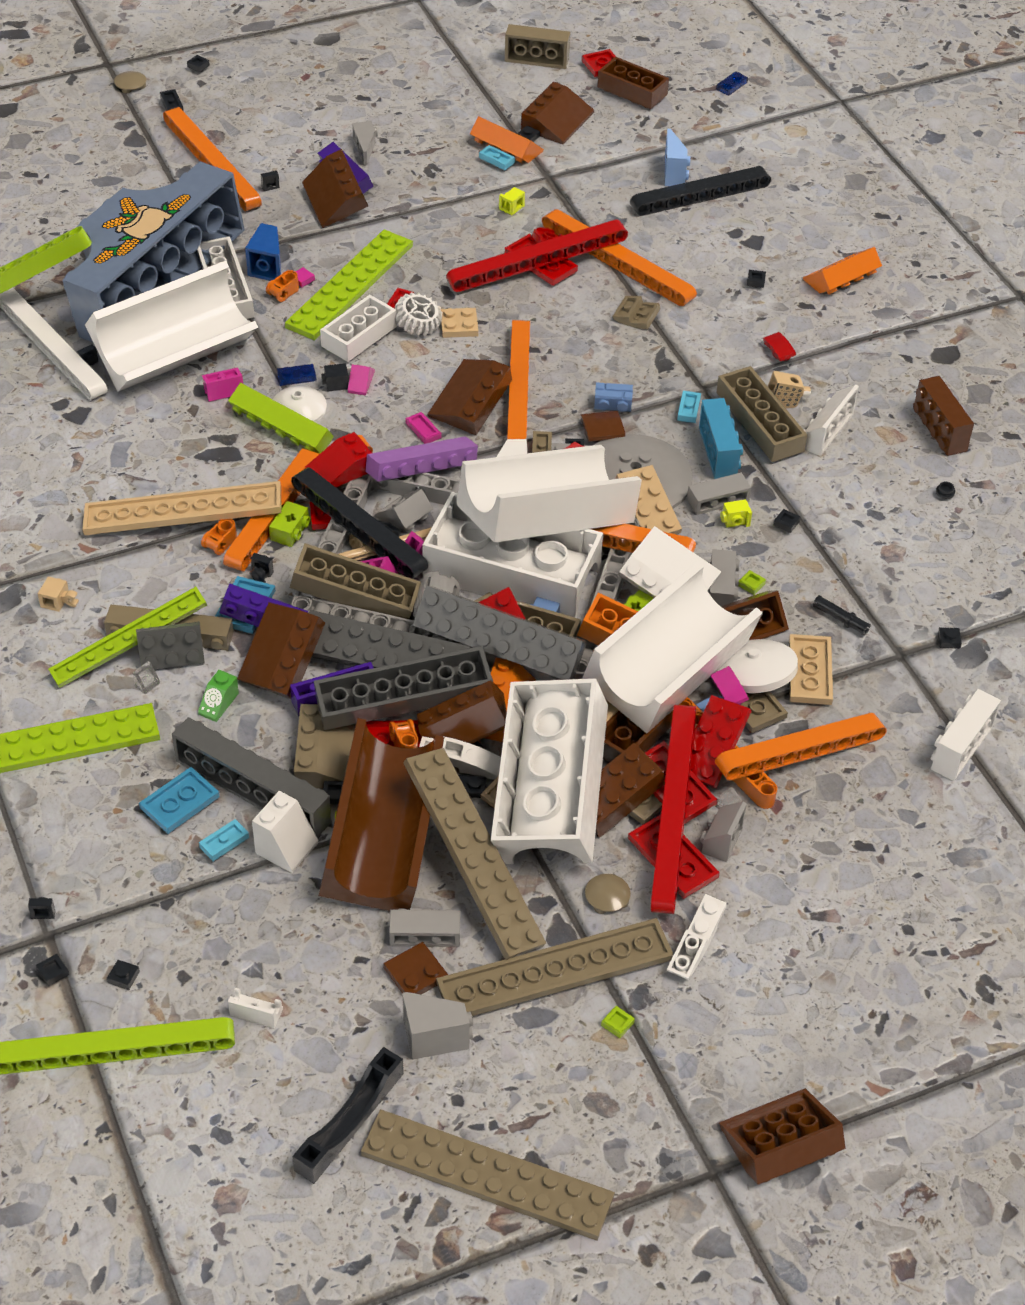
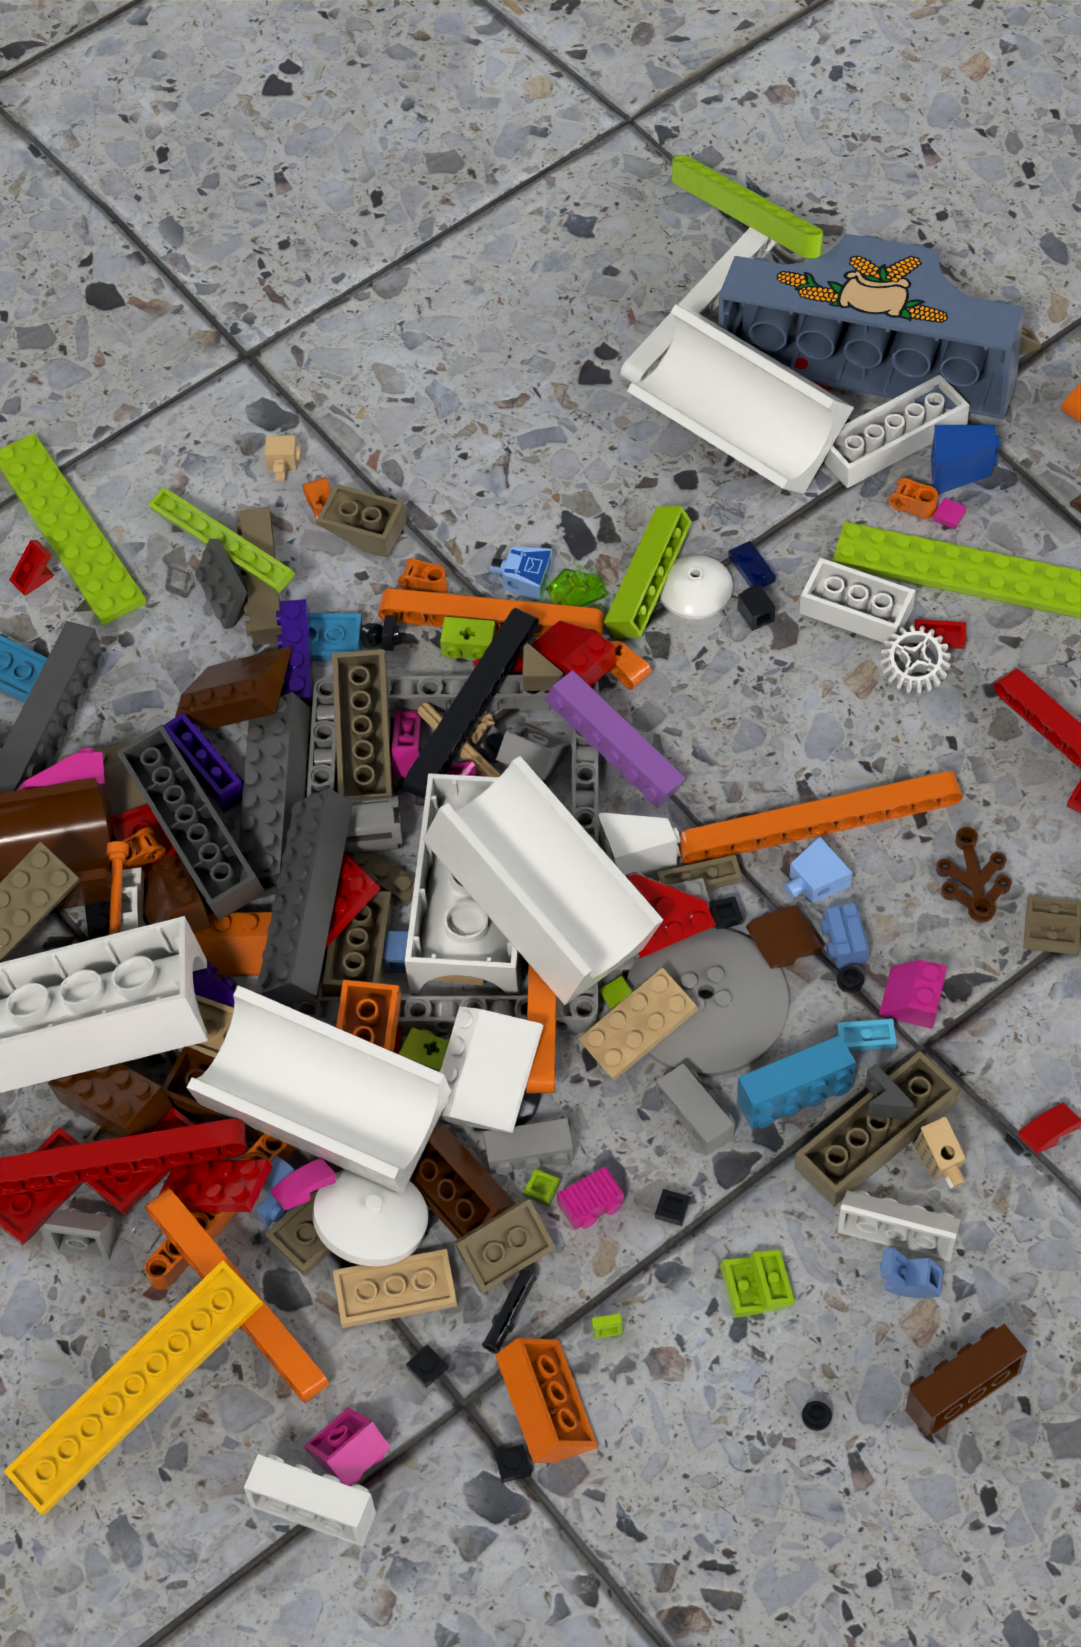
camera: 80 degrees right, 10 degrees up
(84, 767) = (31, 568): none -> red slope
(112, 579) = (317, 494): none -> orange piece
(154, 552) = (363, 519): none -> dark tan slope
(182, 508) = (450, 525): tan plate -> none
(218, 695) = (171, 656): bright green slope -> none
(221, 383) = (694, 493): dark pink hinge -> none
(244, 474) = (525, 571): none -> light blue torso
(275, 459) = (576, 588): none -> clear neon green slope
(331, 751) = (79, 766): none -> dark pink slope
(349, 480) = (537, 671): none -> dark tan slope
(360, 379) = (771, 634): dark pink slope -> none
(416, 737) = (117, 854): none -> orange piece
(423, 428) = (703, 732): dark pink tile -> none
(459, 322) = (934, 715): tan plate -> none
(471, 394) = (772, 765): reddish brown slope -> none
(560, 398) = (817, 873): none -> light blue torso
(590, 334) = (973, 879): none -> reddish brown plant
(645, 404) = (850, 979): none -> black plate
(666, 377) = (914, 993): none -> dark pink slope
(736, 513) = (661, 1139): neon yellow brick -> none
(747, 390) = (890, 1100): none -> dark grey slope
(771, 557) = (590, 1199): none -> dark pink brick
(797, 602) = (504, 1245): none -> dark tan plate
(849, 496) = (757, 1283): none -> lime slope
(865, 424) = (910, 1277): none -> medium blue brick
(865, 568) = (607, 1326): none -> lime tile
(865, 815) = (133, 1388): none -> yellow plate
(870, 666) = (426, 1366): none -> black plate
(911, 610) = (545, 1399): none -> orange slope
(923, 714) = (348, 1446): none -> dark pink slope

